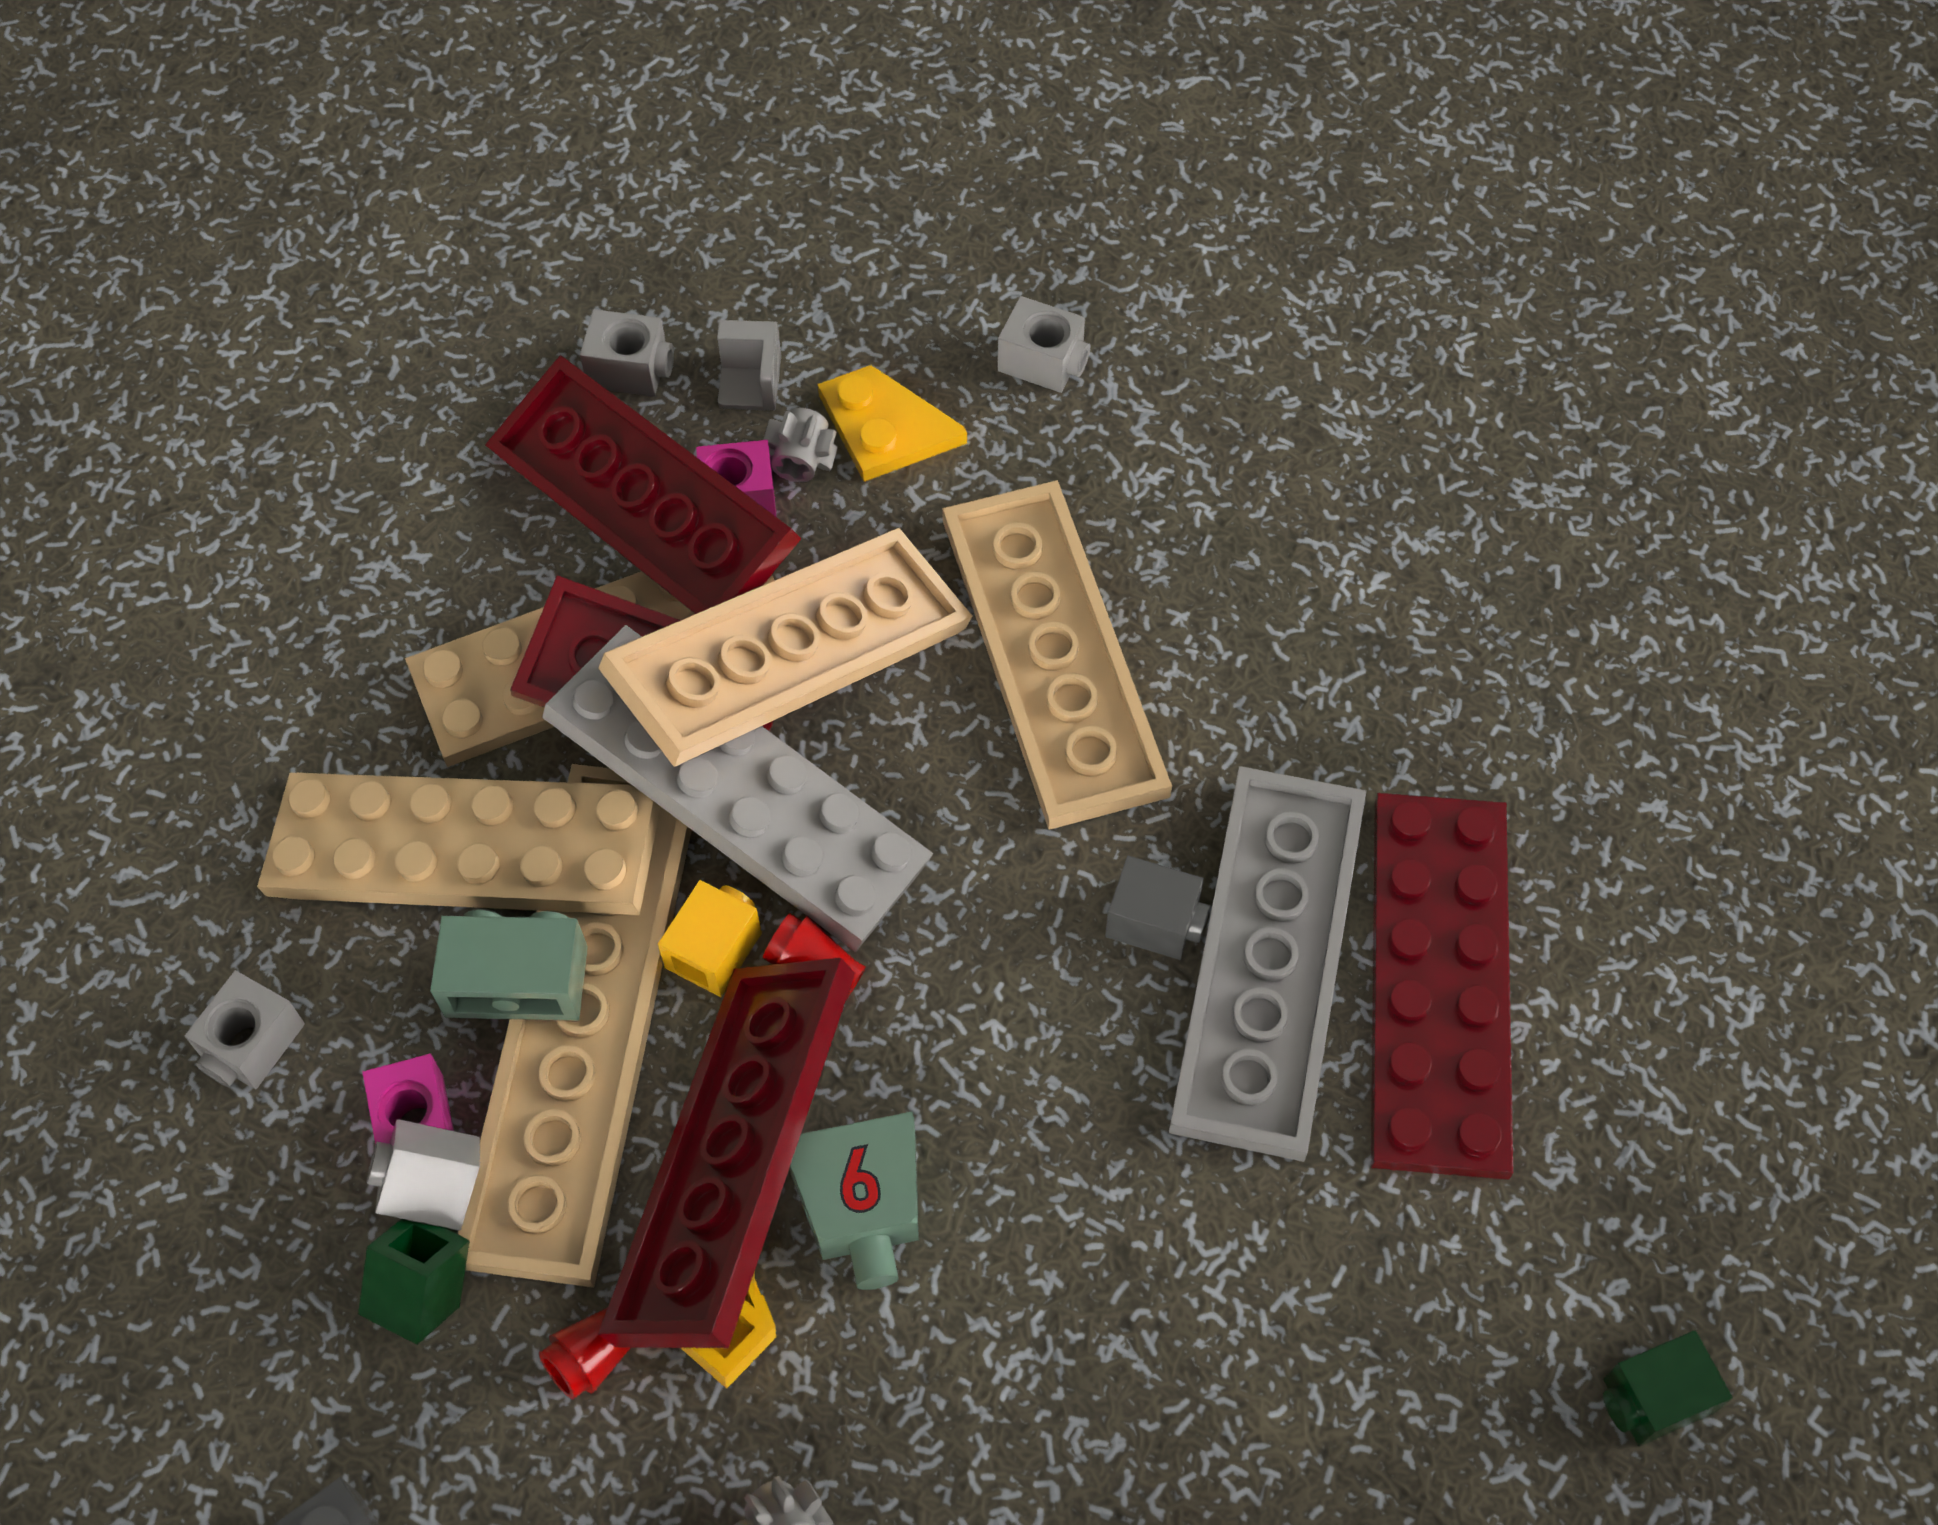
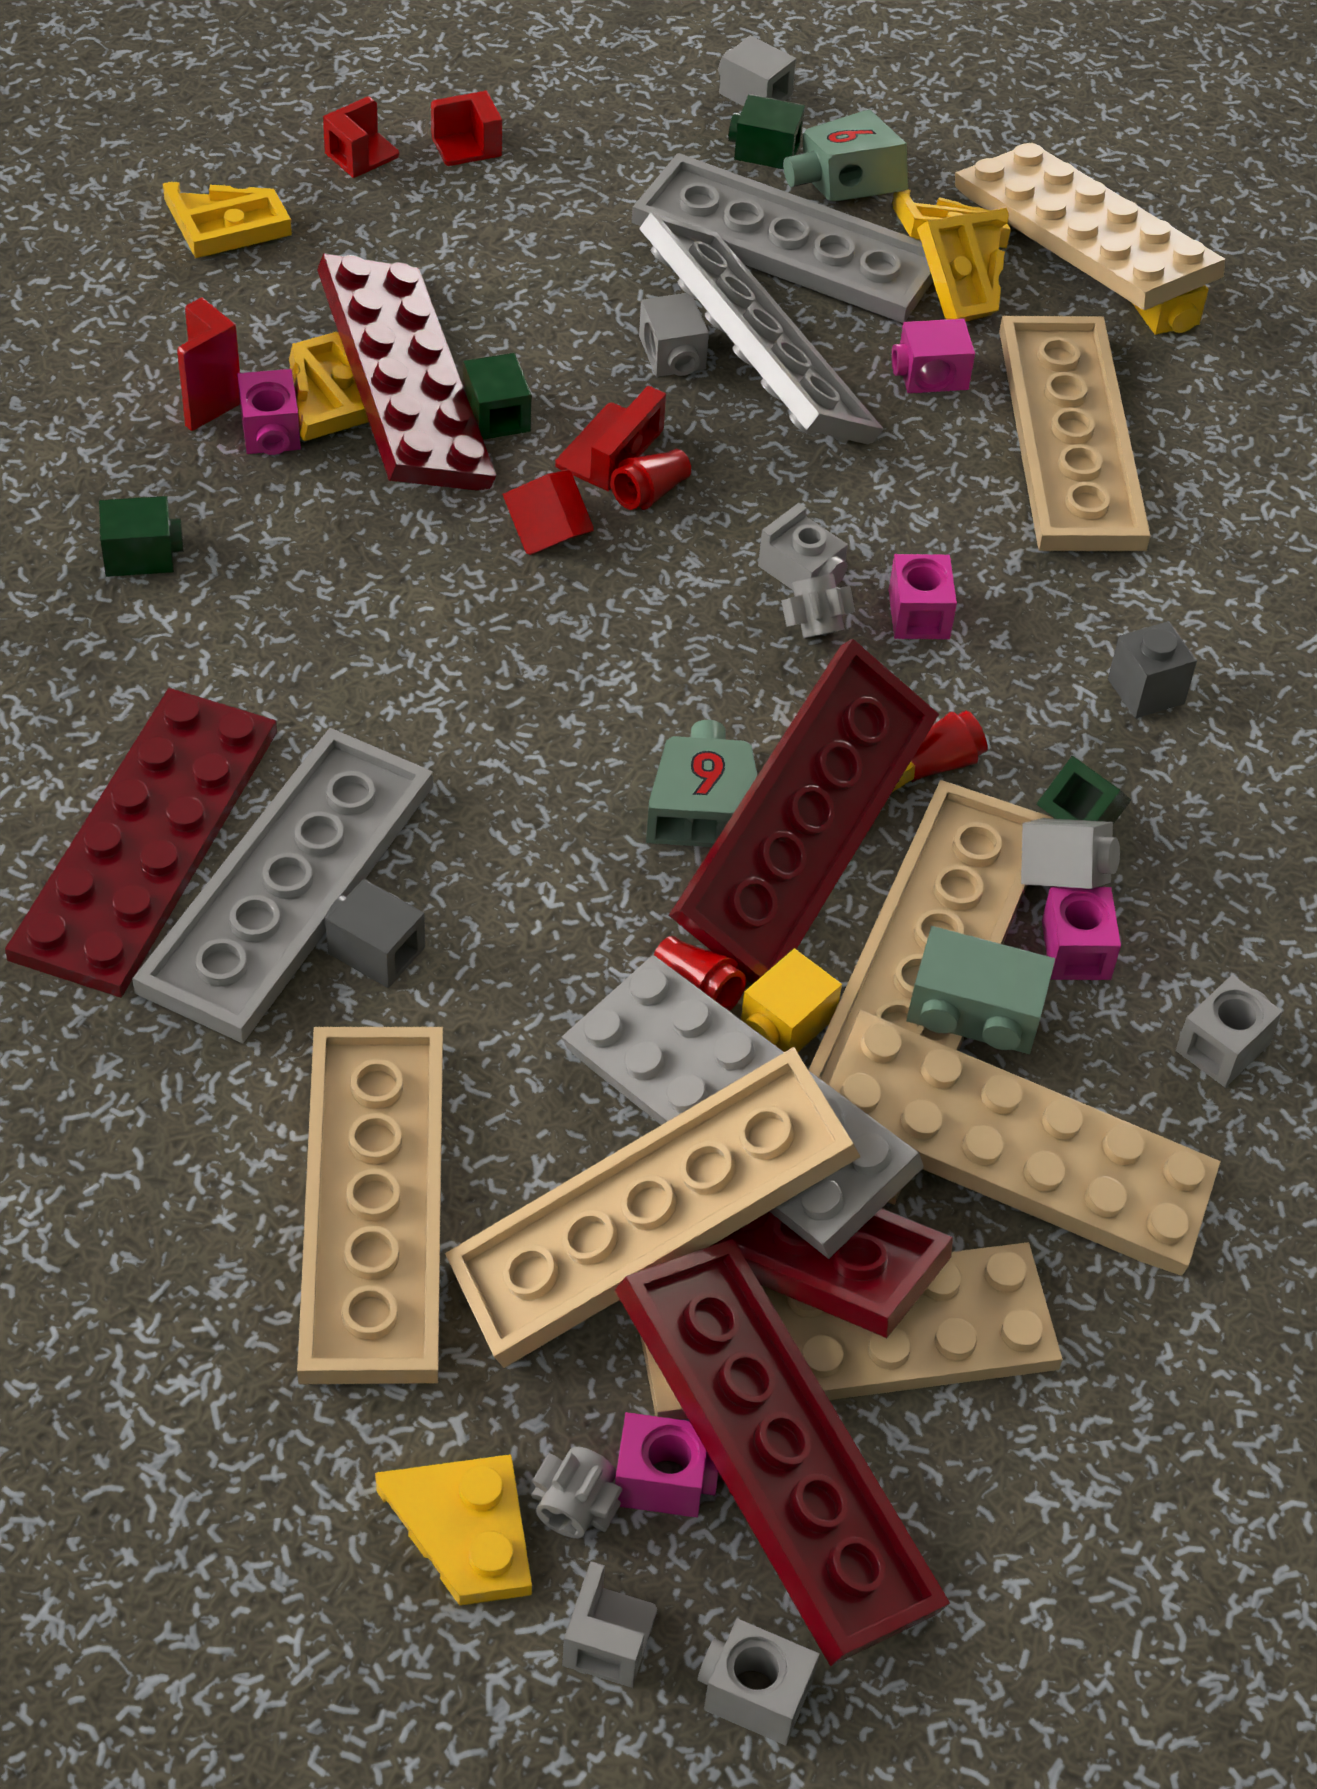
camera: 170 degrees left, 10 degrees down
(1042, 344) = (250, 1585): light grey brick -> none

